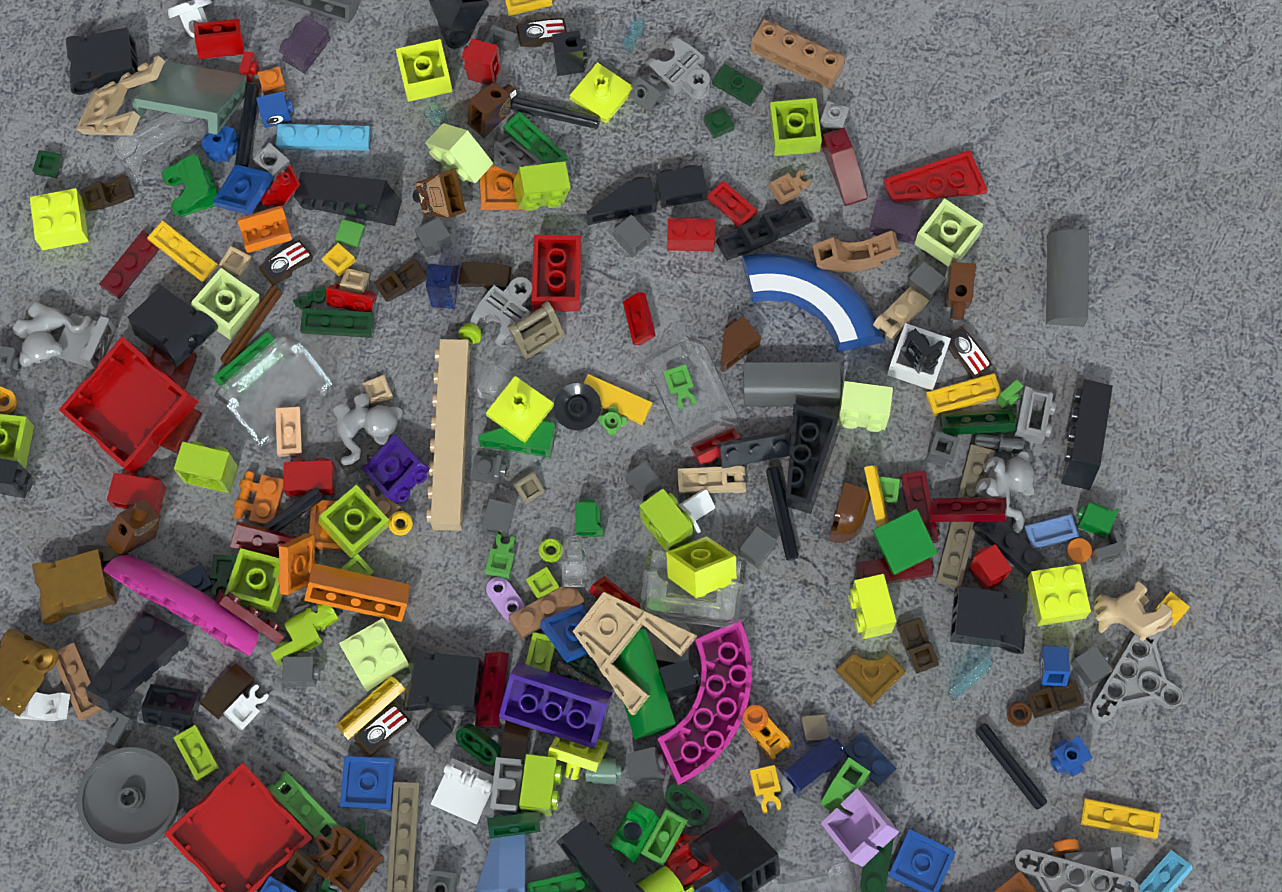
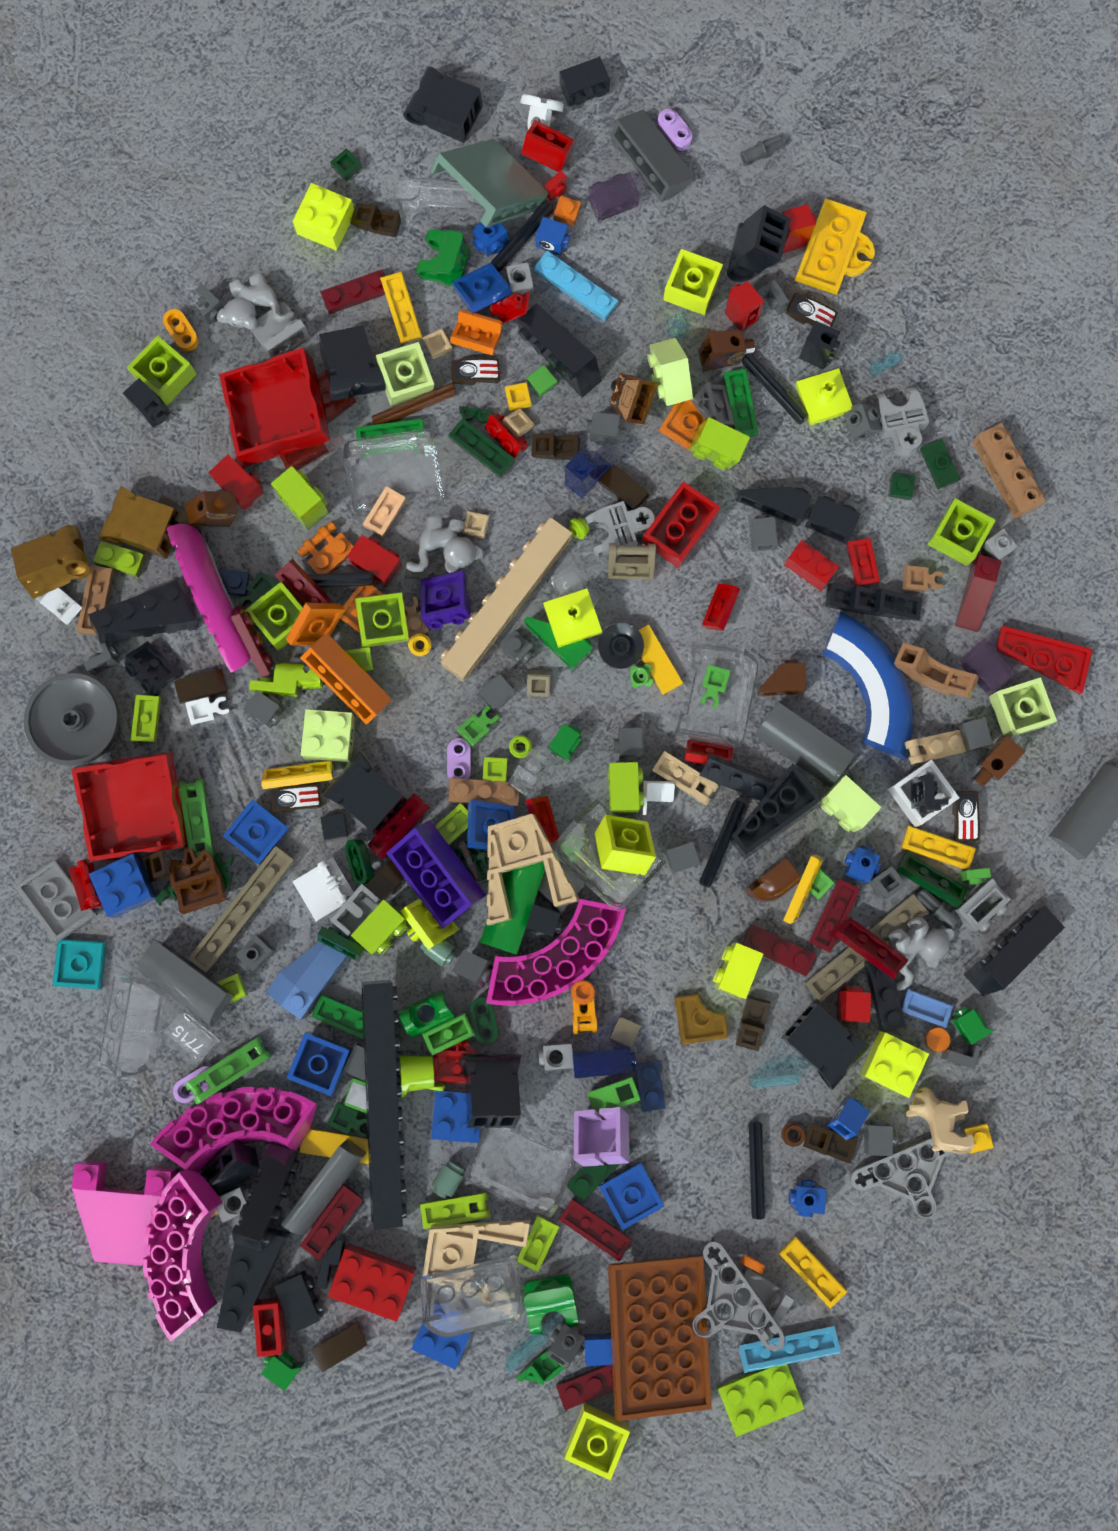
camera: 35 degrees right, 10 degrees up
(73, 630) = (119, 559): none -> lime plate
(104, 103) = (410, 150): tan wing -> none
(765, 784) = (552, 1051): yellow plate -> none
(904, 541) = (801, 936): green tile -> none
(911, 449) = (856, 869): none -> blue brick

